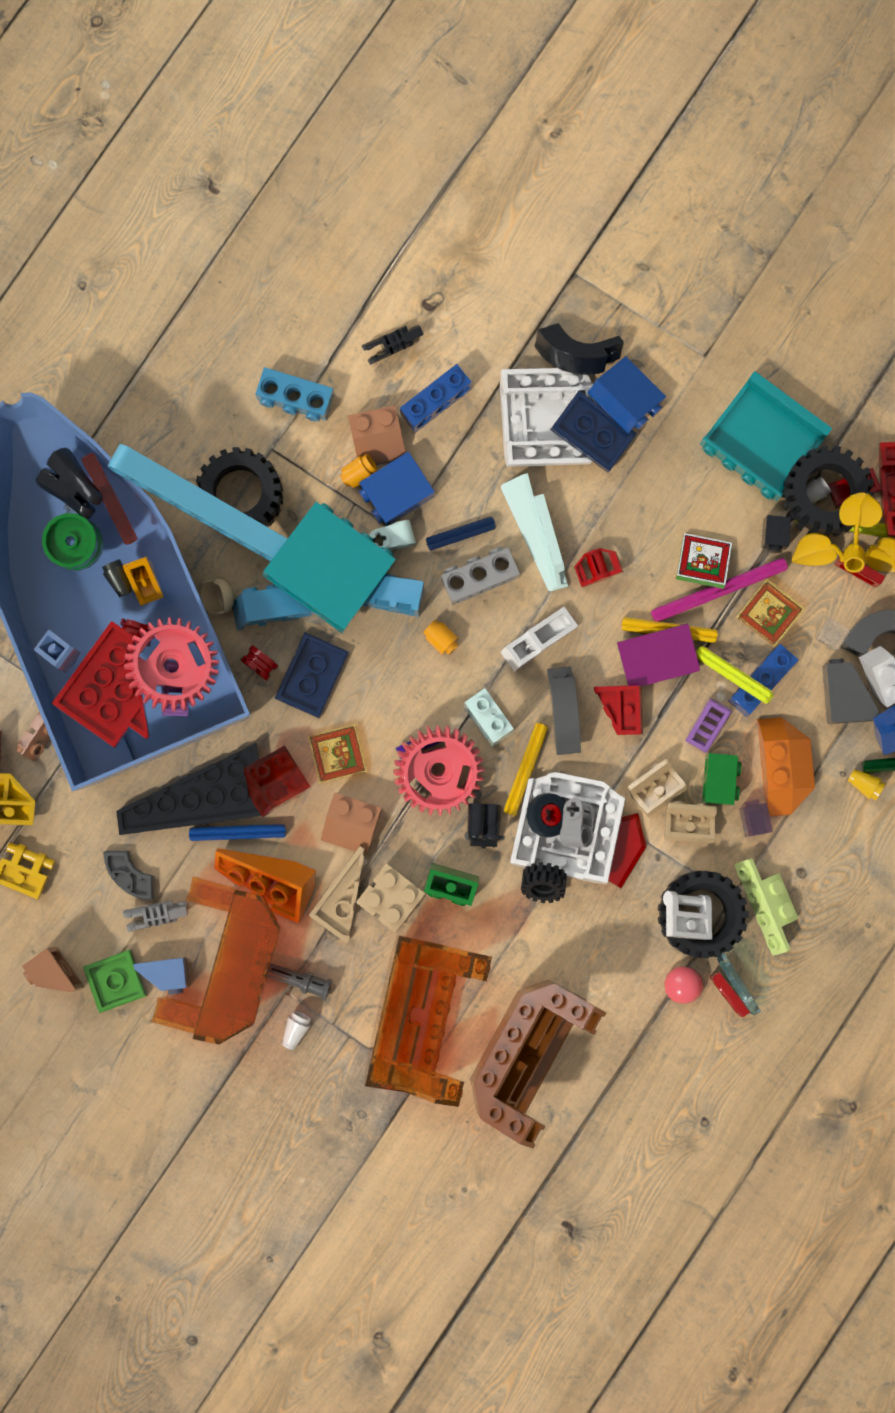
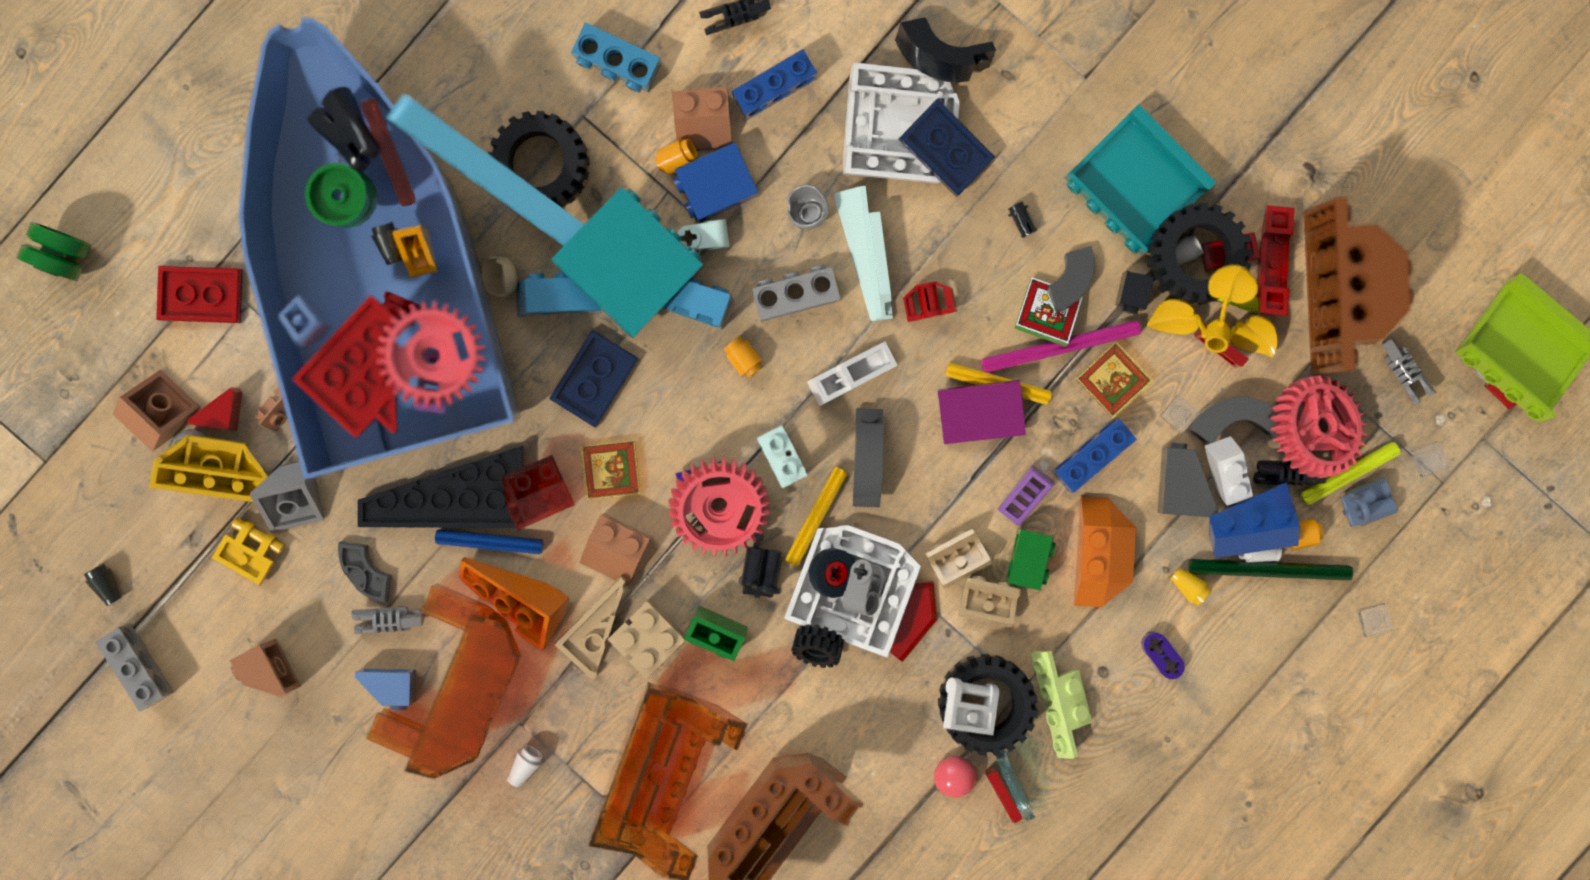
camera: 10 degrees right, 5 degrees up
(54, 817) = (288, 499): none -> light grey slope
(114, 981) = (333, 685): bright green tile -> none
(259, 662) = (536, 357): red wheel -> none
(305, 982) = (541, 716): dark grey pin -> none
(460, 533) = (781, 242): dark blue axle -> none
(479, 499) = (807, 207): none -> light grey hair
(623, 707) = (934, 463): red wing -> none
(627, 395) = (991, 112): blue brick -> none
(668, 484) = (1022, 219): none -> black pin
(722, 530) = (1074, 281): none -> dark grey tile
(734, 675) = (1063, 446): neon yellow axle -> none
(755, 818) = (1062, 607): clear purple brick -> none
(848, 853) = (1157, 659): none -> dark purple beam

